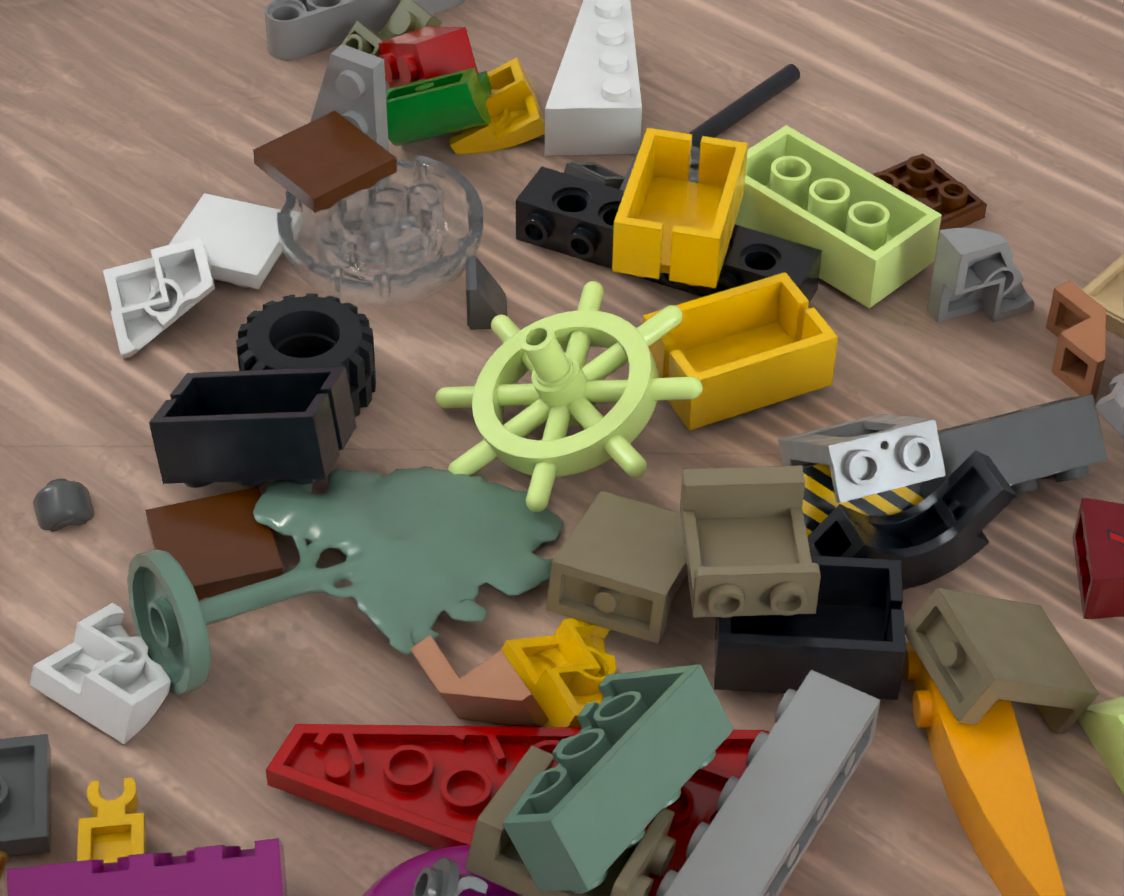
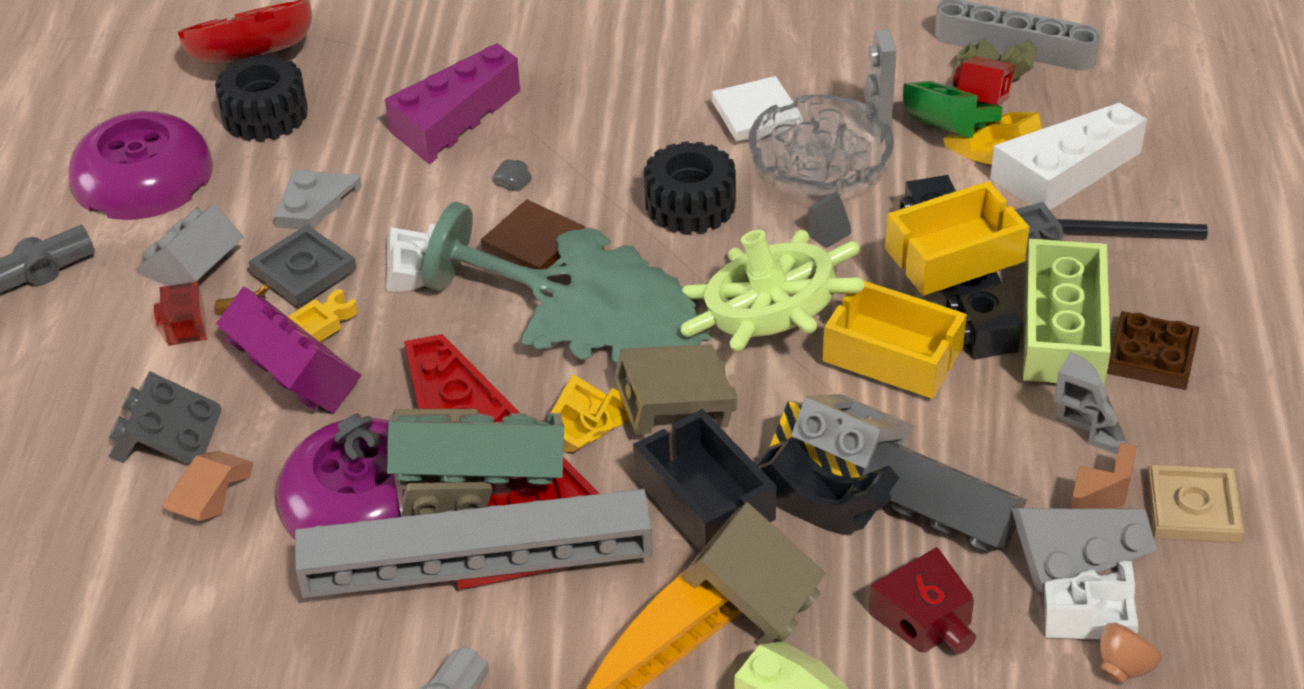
camera: 55 degrees right, 0 degrees up
(157, 291) = (681, 106): white slope -> none
(253, 426) = (613, 196): black piece -> none
(325, 161) = (825, 92): reddish brown tile -> none
(485, 693) = (529, 375): nougat slope -> none
(747, 542) = (707, 412): dark tan panel -> none

